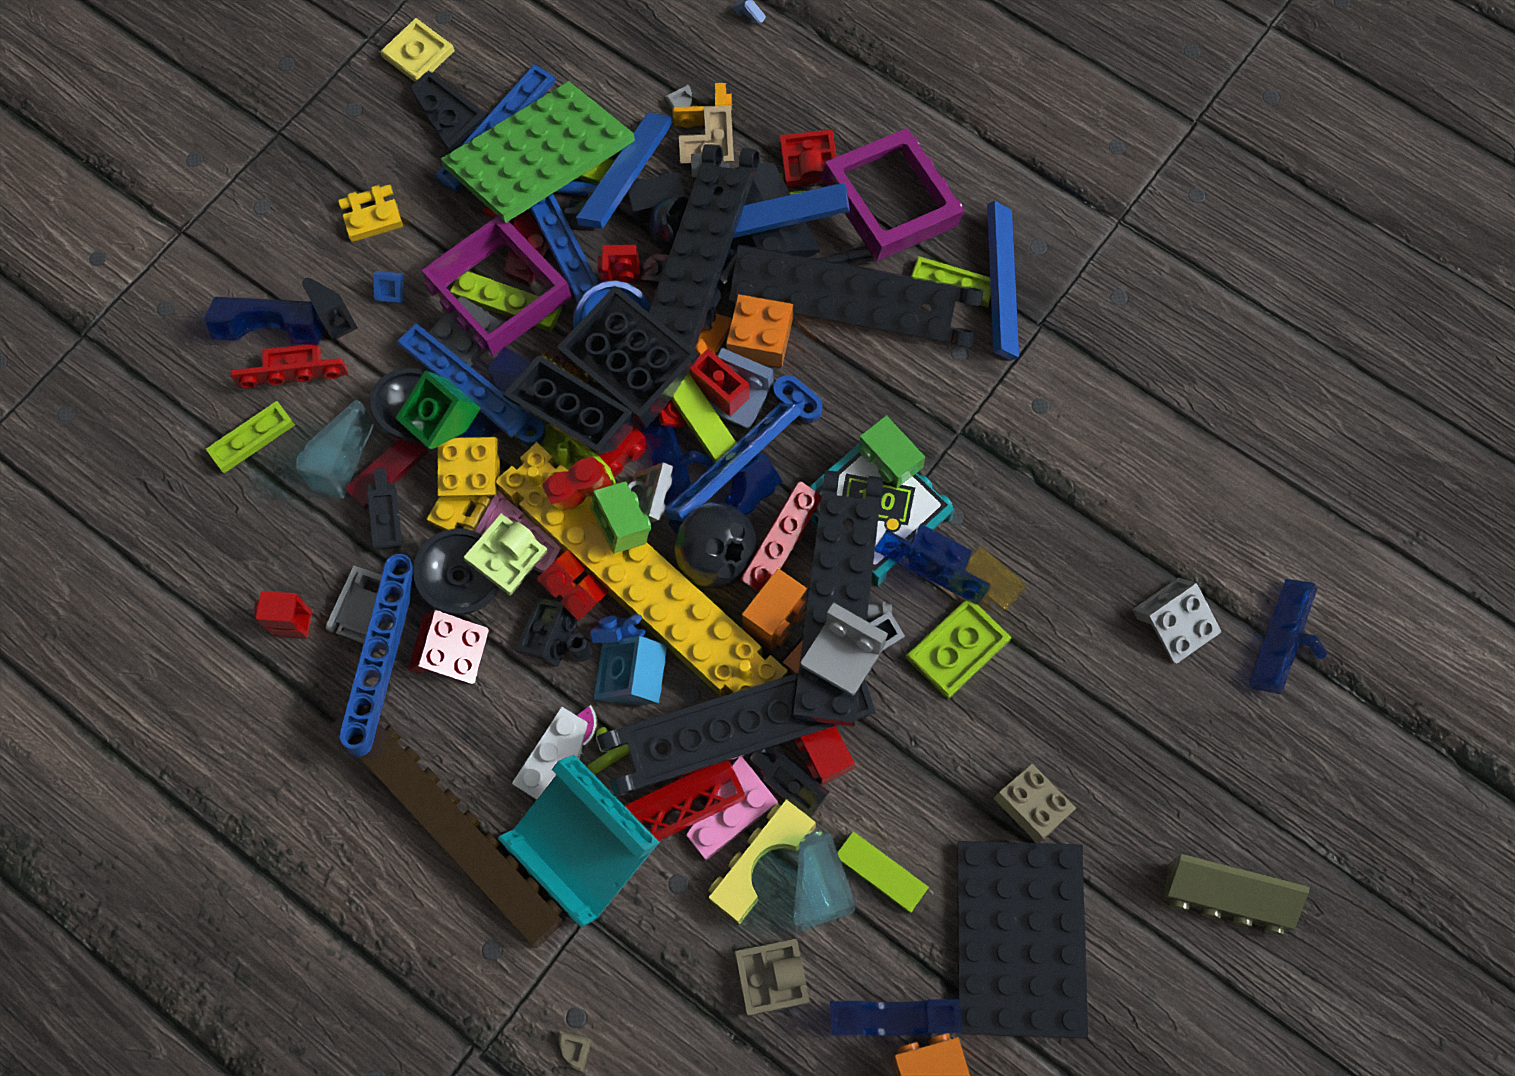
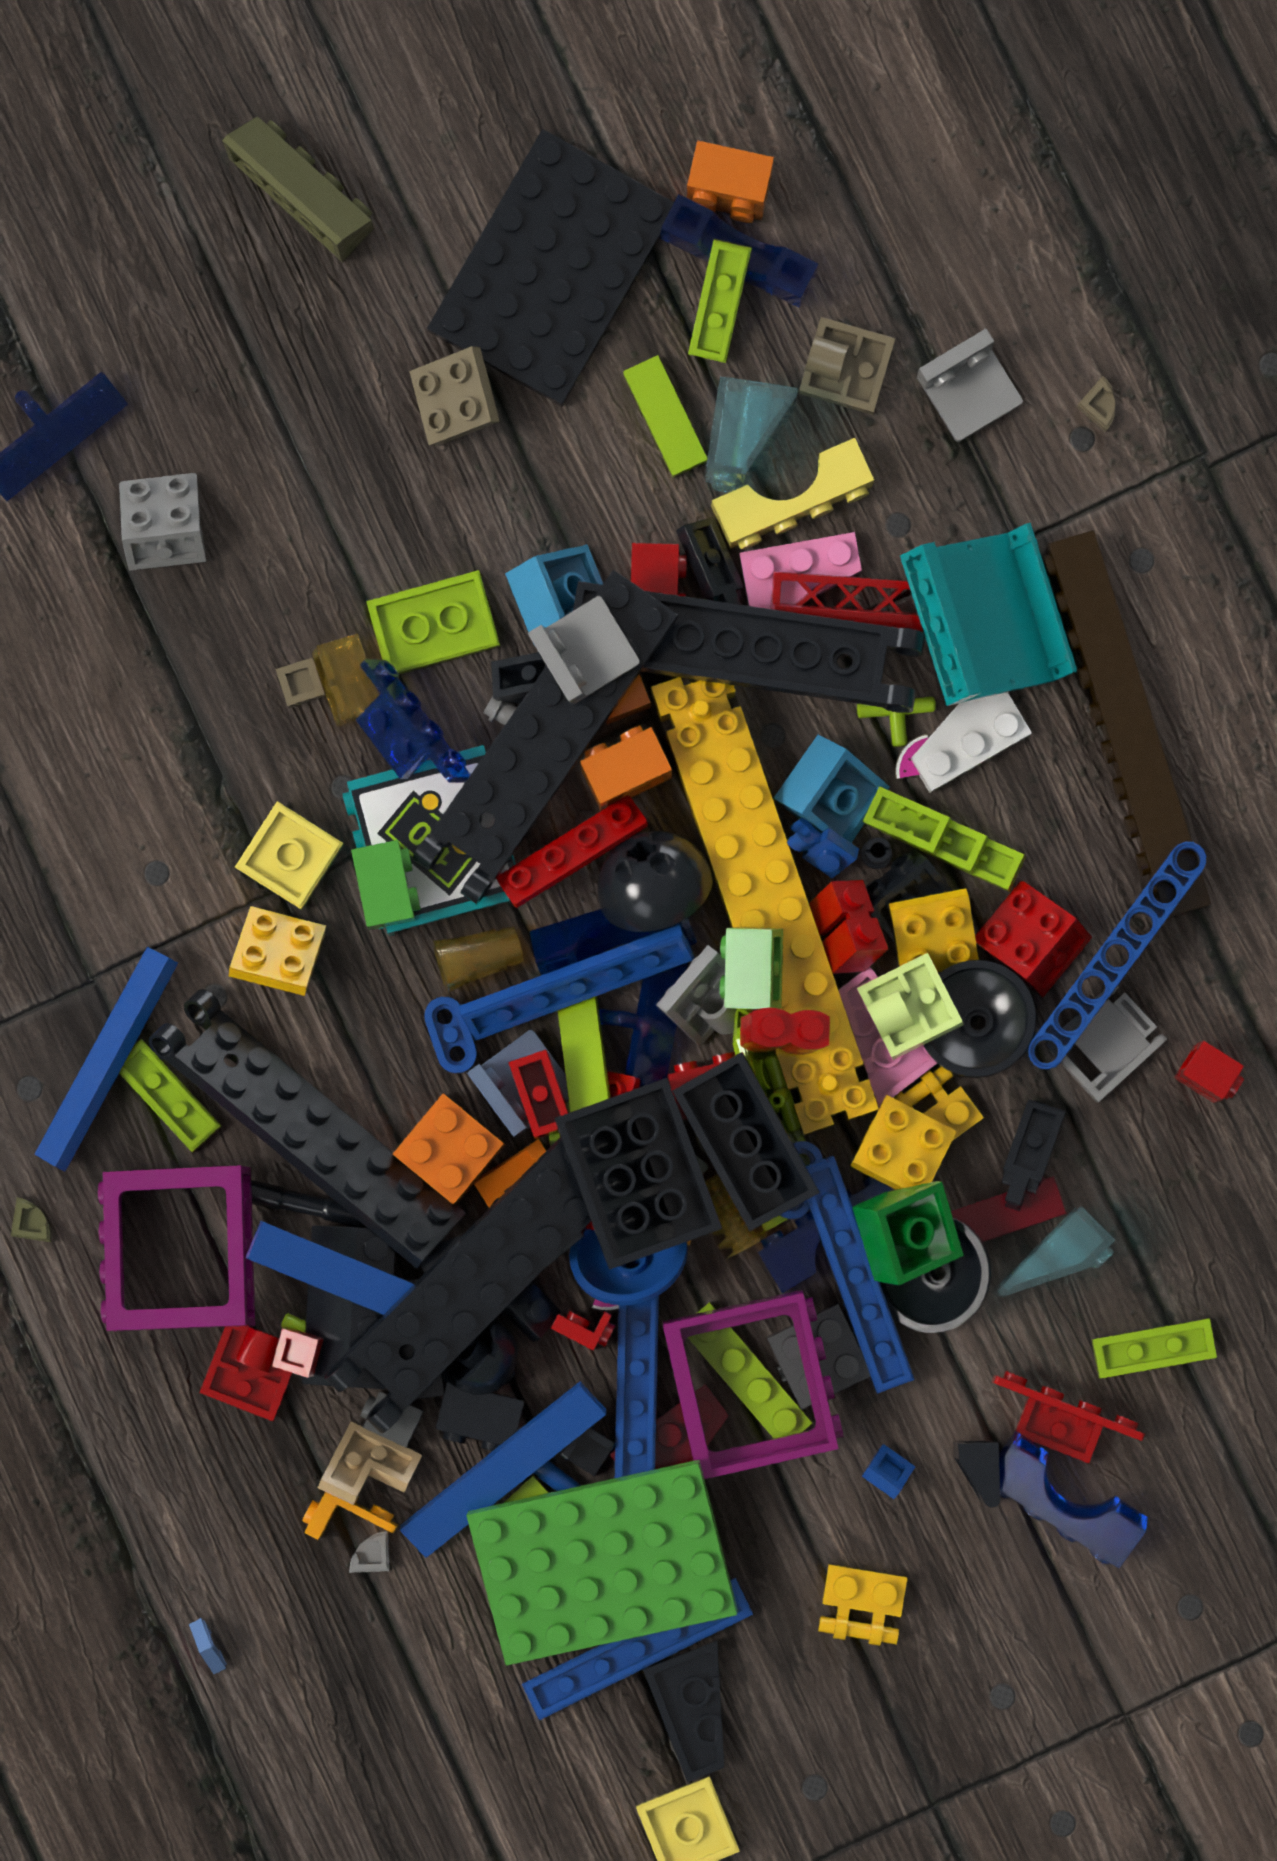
camera: 155 degrees left, 15 degrees up
(514, 615) = (934, 926): none -> yellow plate
(539, 682) = (944, 839): none -> lime slope
(674, 1008) = (969, 386): none -> light grey bracket
(785, 171) = (297, 1352): none -> plate
(808, 450) = (476, 956): none -> clear yellow plant
(888, 975) = (719, 300): none -> lime tile
(895, 705) = (549, 582): none -> dark azure slope
(936, 389) = (277, 951): none -> yellow plate
(963, 453) = (289, 855): none -> light yellow plate
(989, 174) = (30, 1222): none -> olive tile
(1023, 563) = (300, 682): none -> dark tan tile

